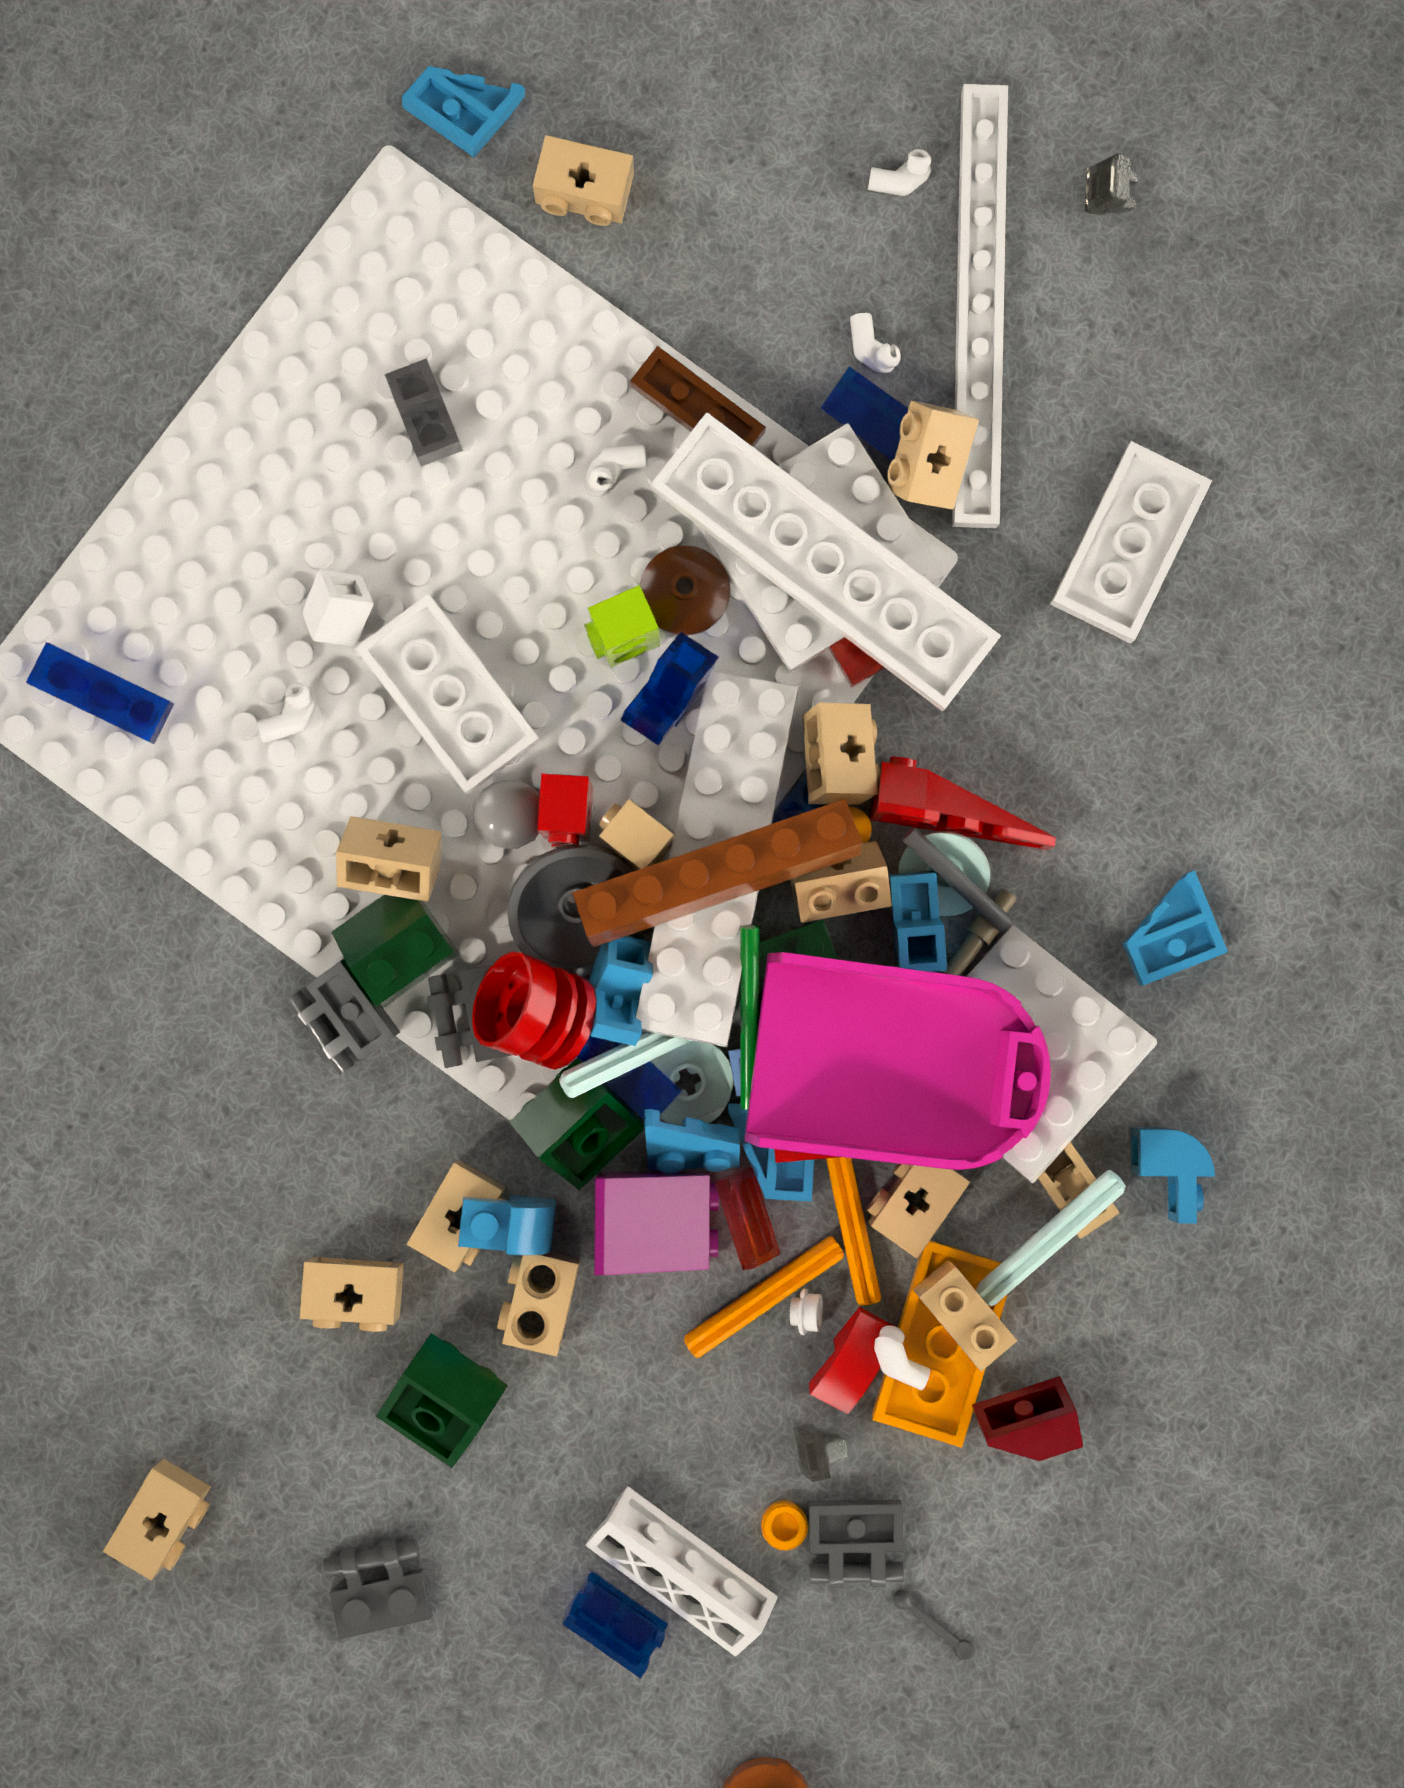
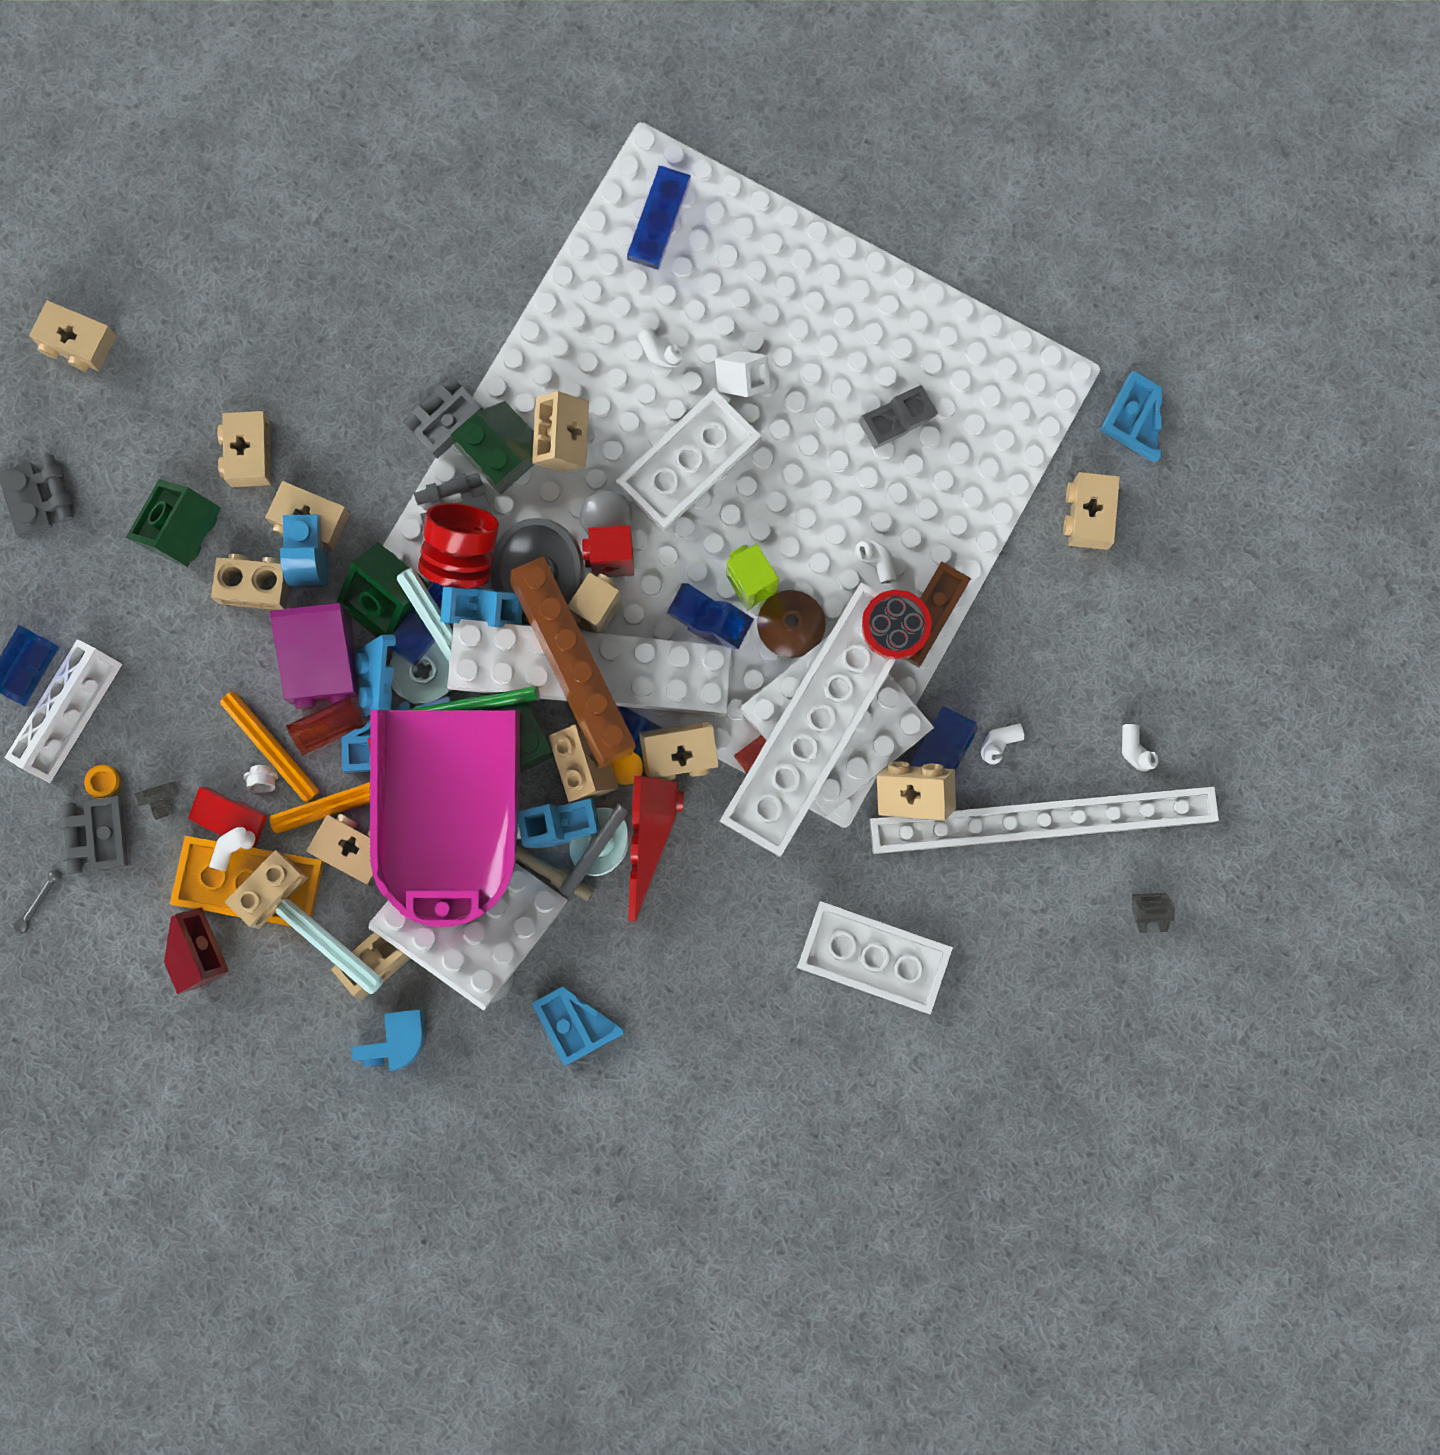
camera: 85 degrees right, 5 degrees down
(715, 443) = (896, 624): none -> tile

